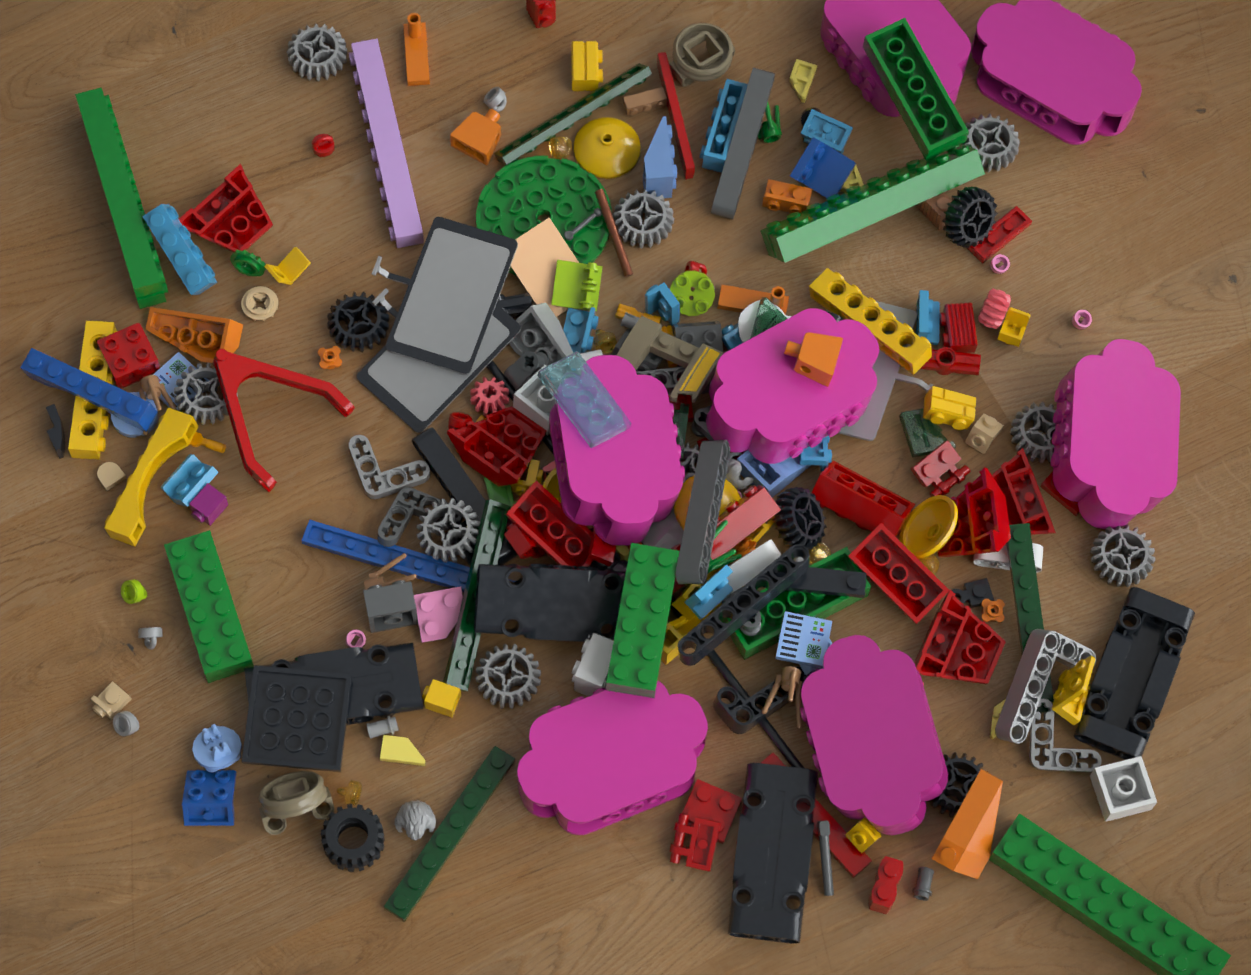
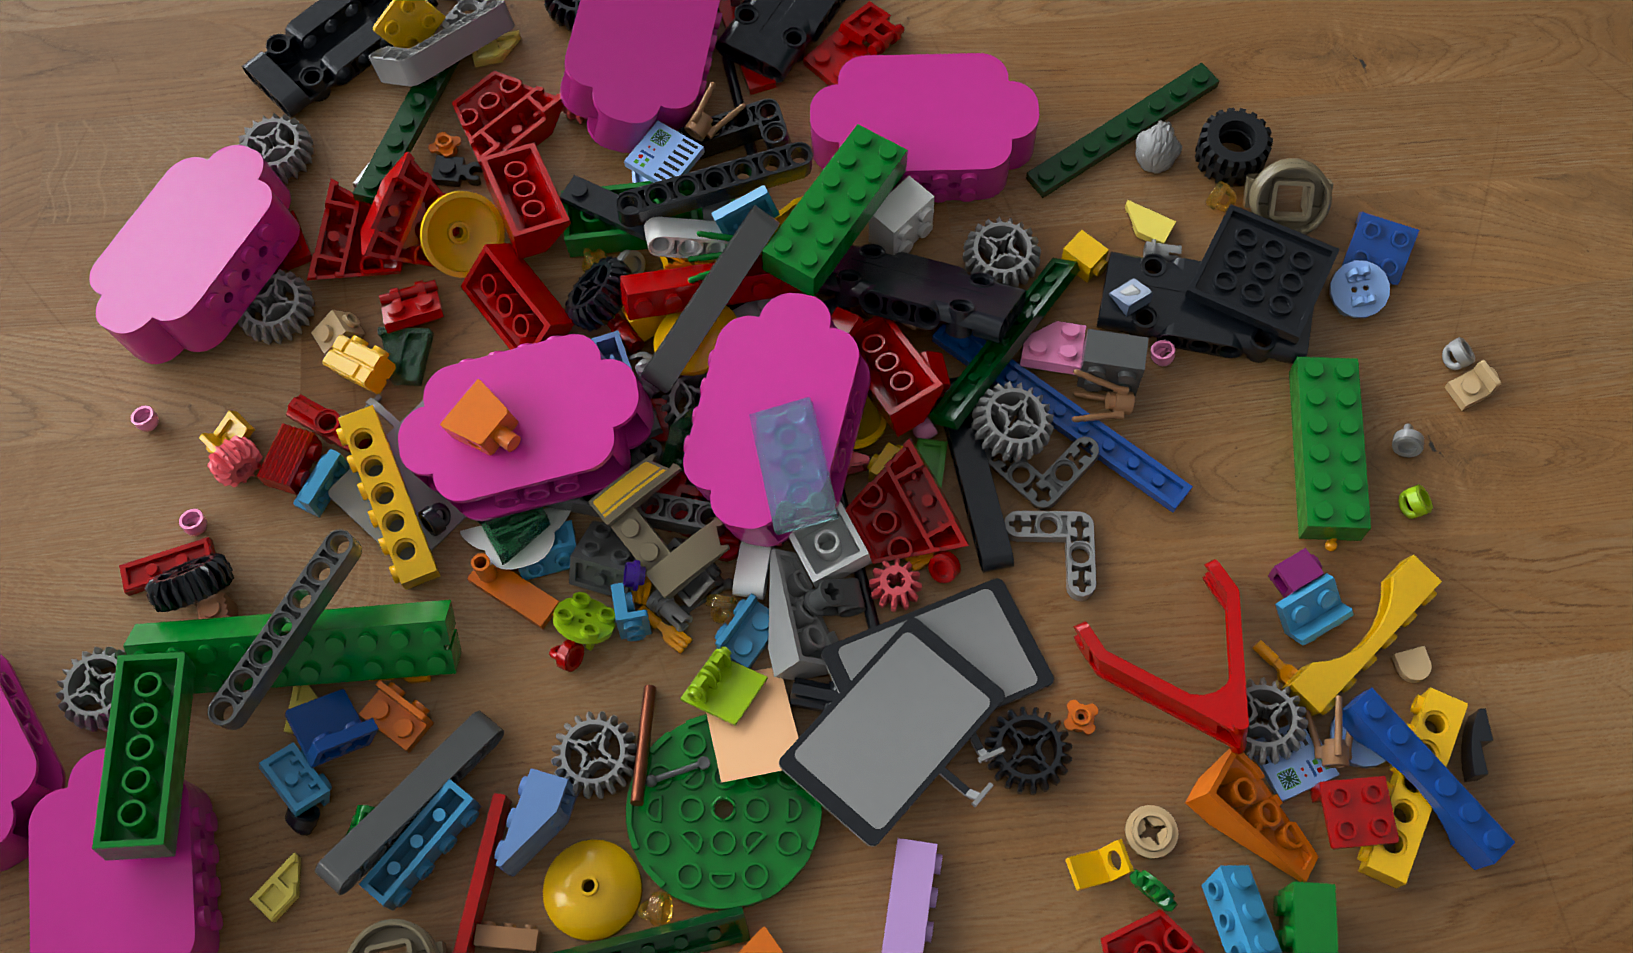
camera: 150 degrees left, 0 degrees up
(393, 661) = (1131, 296): none -> slope
(669, 322) = (634, 575): none -> dark purple plate
(870, 197) = (270, 636): none -> dark grey beam

